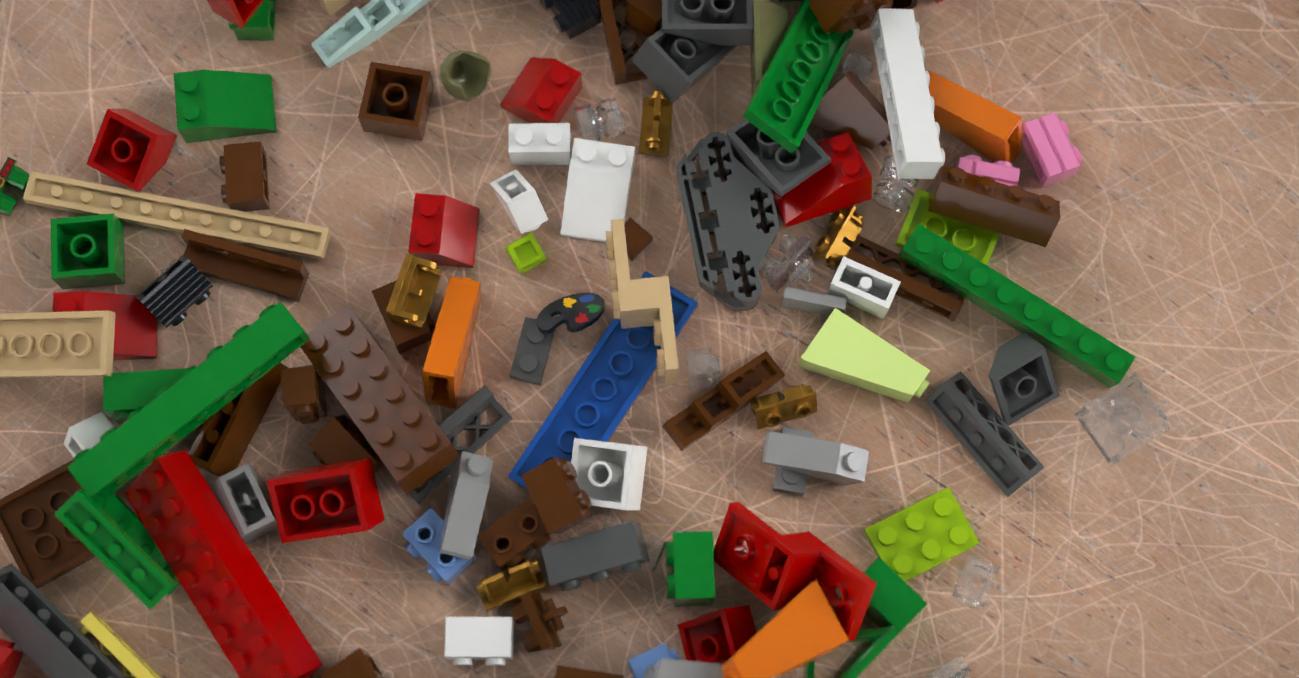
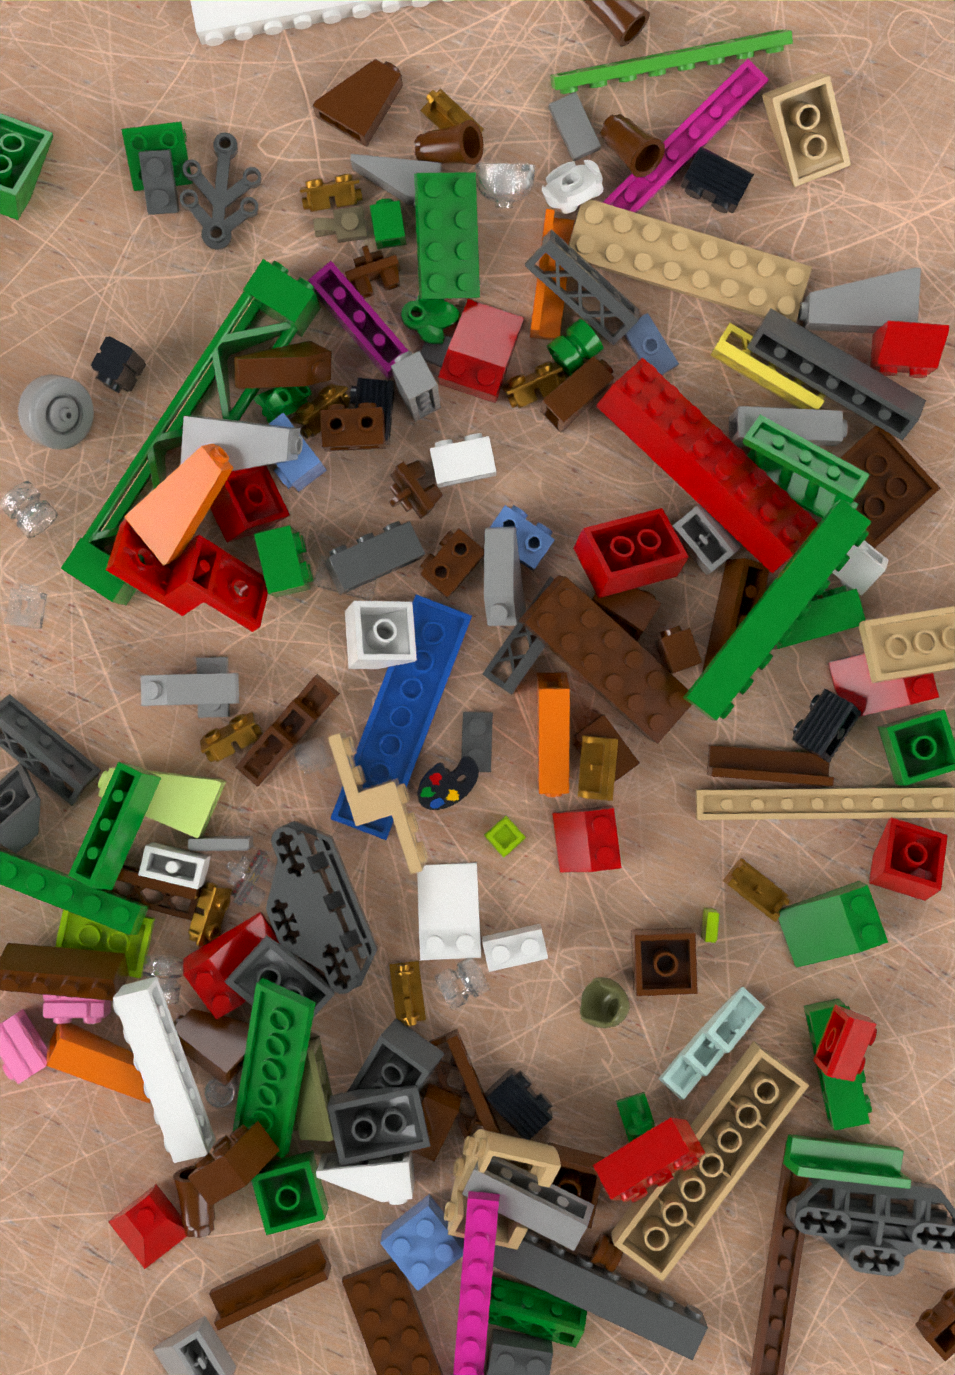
camera: 170 degrees right, 15 degrees up
(119, 602) = (816, 426): none -> light grey slope
(245, 177) = (791, 854): reddish brown brick -> none
(289, 152) = (756, 889): none -> pearl gold hinge
(343, 127) = (710, 925): none -> lime tile
(508, 587) = (446, 516): pearl gold hinge -> none
(519, 201) = (522, 886): white slope -> none
(543, 91) = (525, 1003): red slope -> none
(557, 495) = (419, 602): reddish brown brick -> none
(636, 238) = (401, 874): reddish brown tile -> none
(915, 330) = (114, 826): none -> green brick
(922, 535) = (82, 641): lime plate -> none

